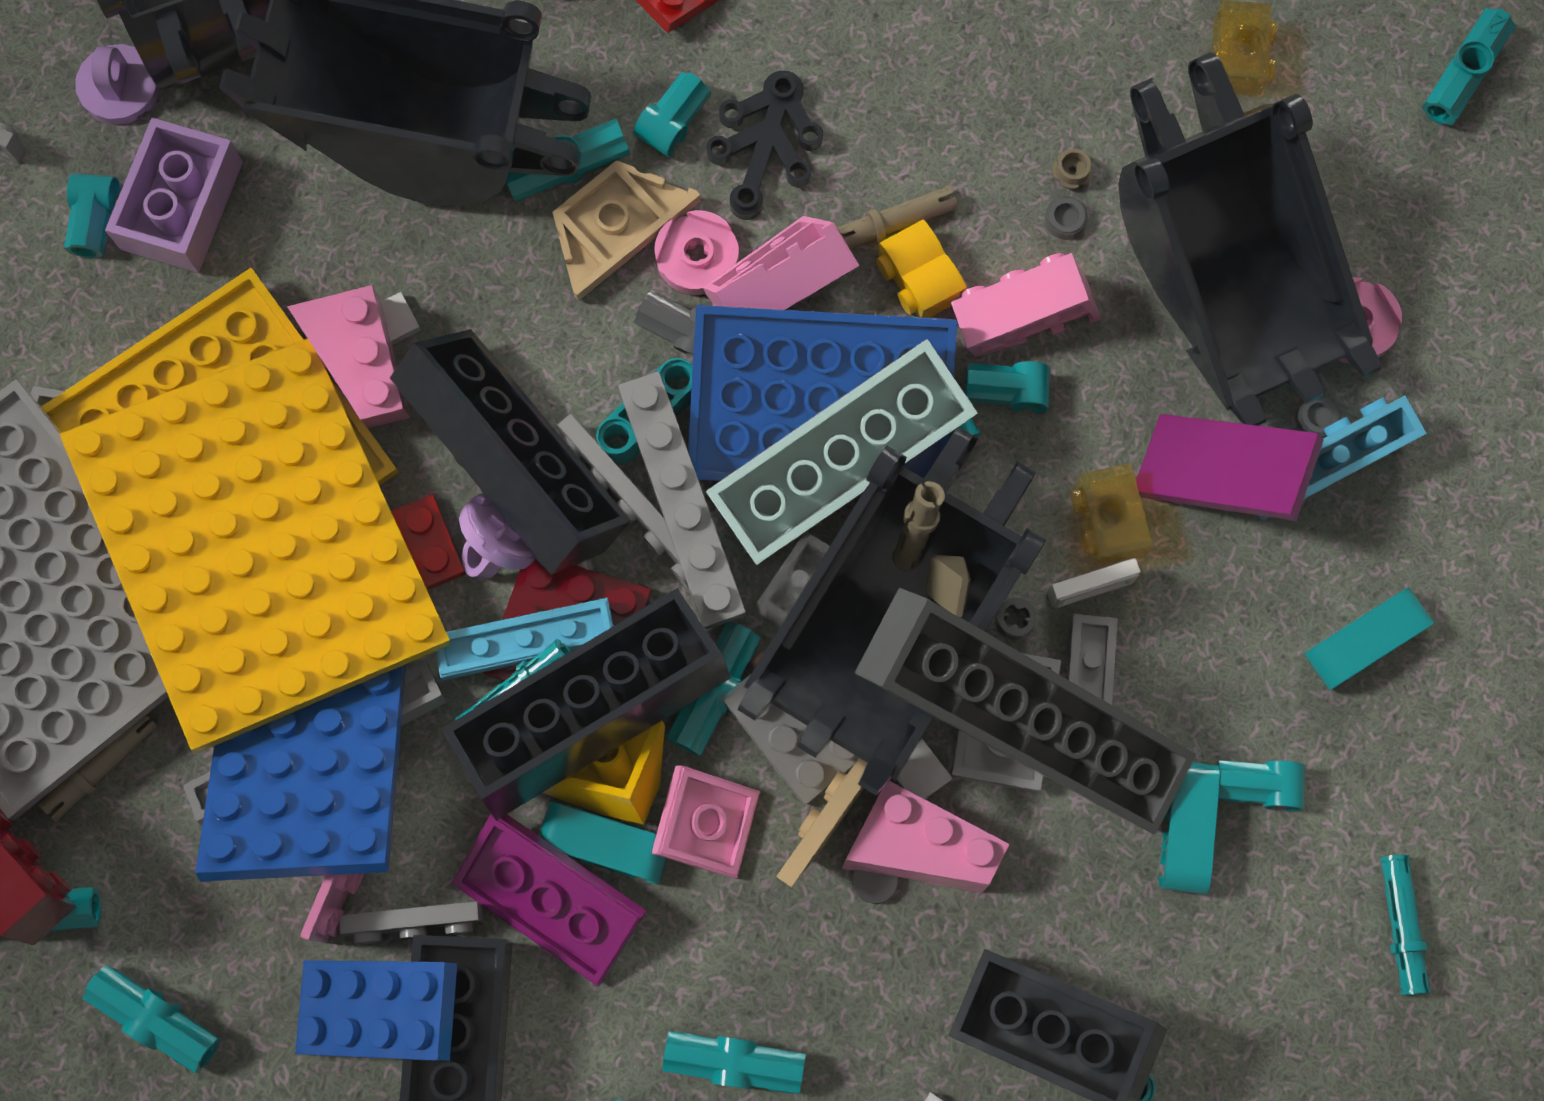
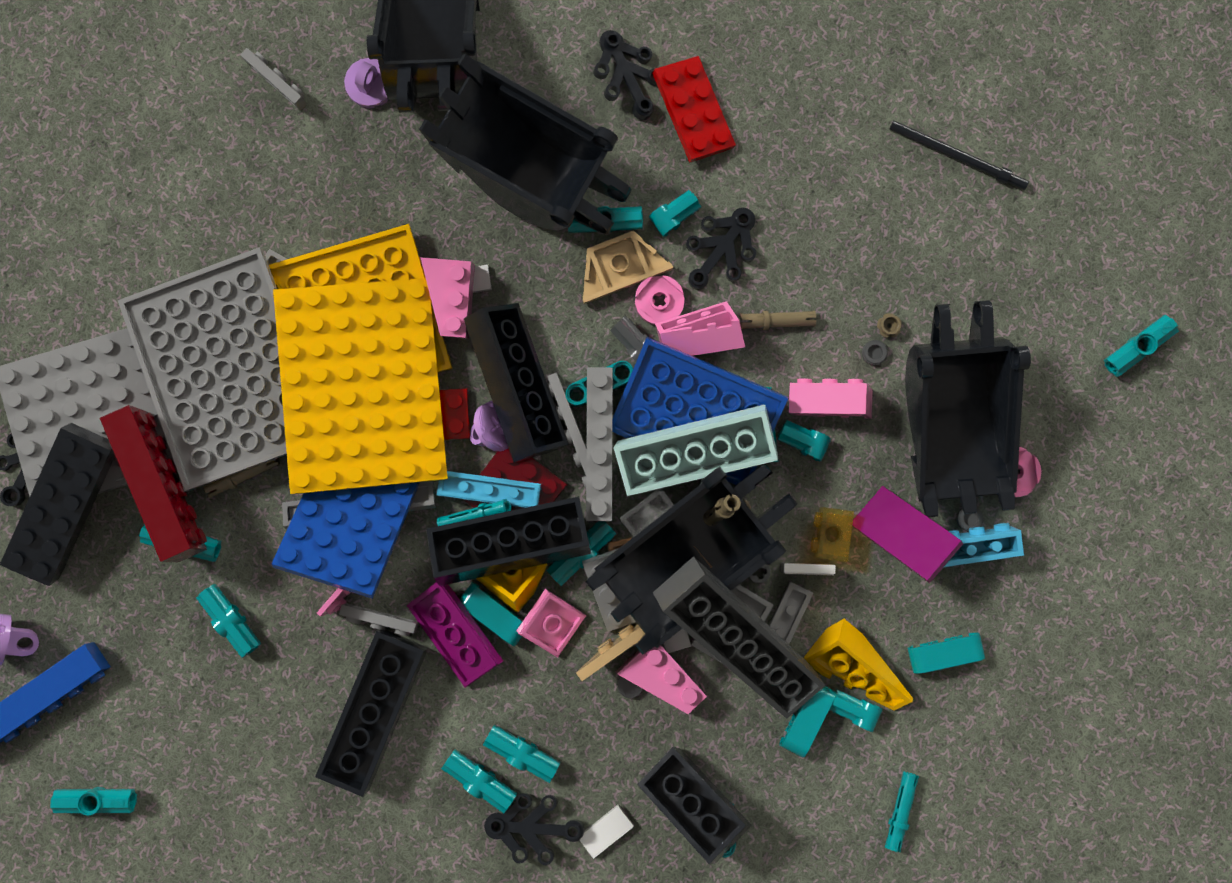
camera: 20 degrees right, 10 degrees up
(91, 206) = (332, 152): teal piece -> none
(174, 195) = (380, 164): lavender brick -> none
(377, 1009) = (345, 662): blue plate -> none
(920, 271) = (780, 356): yellow brick -> none
(949, 583) = (728, 544): dark tan slope -> none
(1223, 703) = (850, 656): none -> yellow wedge
(1247, 26) = (1023, 276): clear yellow brick -> none

